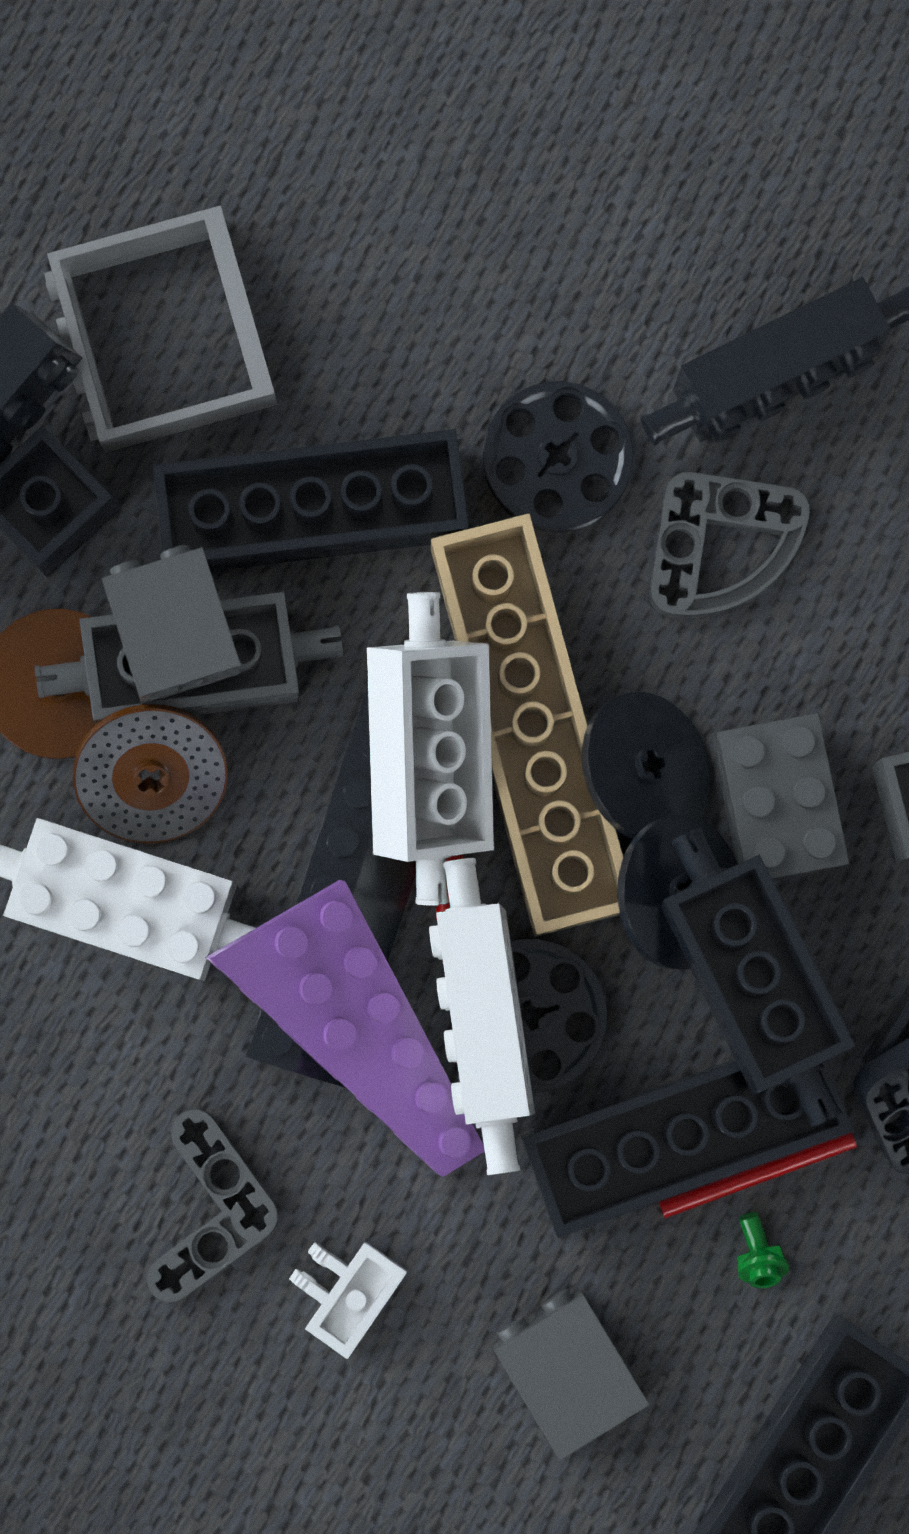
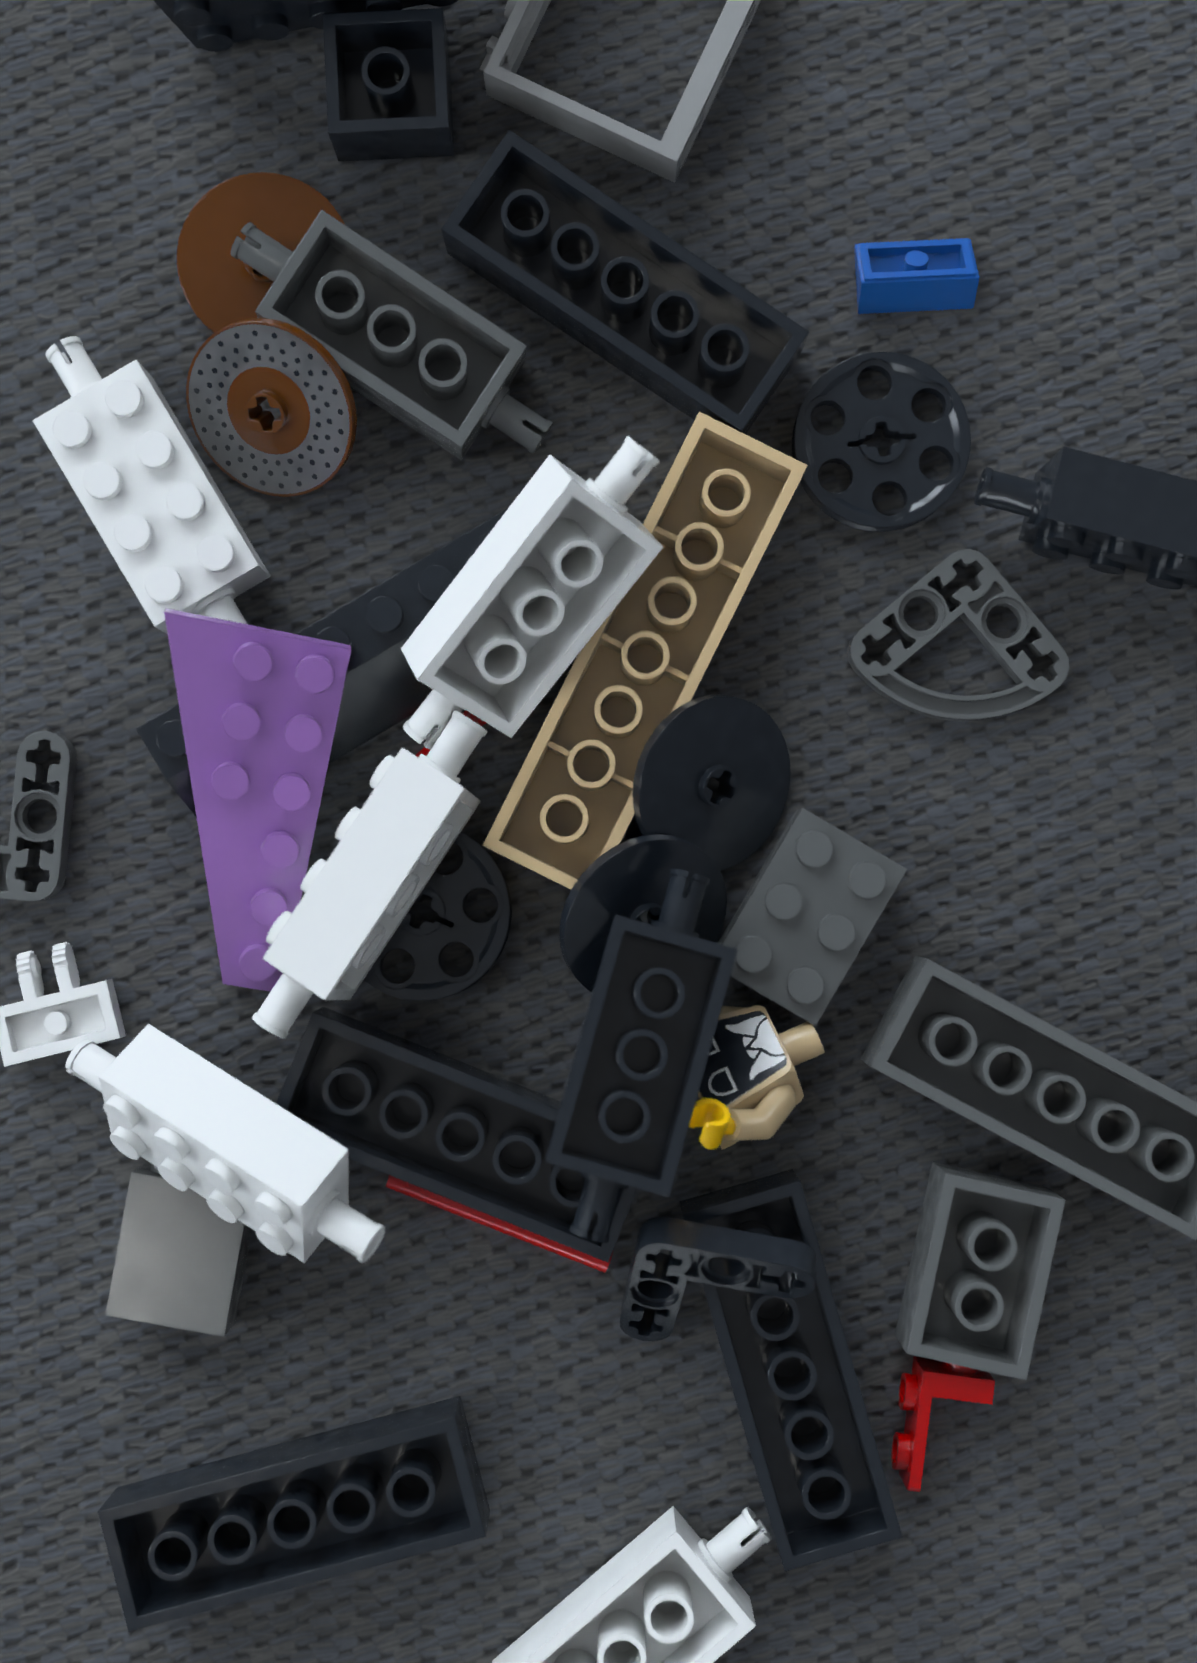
camera: 45 degrees right, 5 degrees up
(171, 623) = (394, 281): dark grey brick -> none
(485, 331) = (915, 275): none -> blue slope
(543, 1271) = (227, 1145): none -> white brick
(762, 1264) = (433, 1300): green plate -> none
(839, 930) = (750, 1077): none -> torso

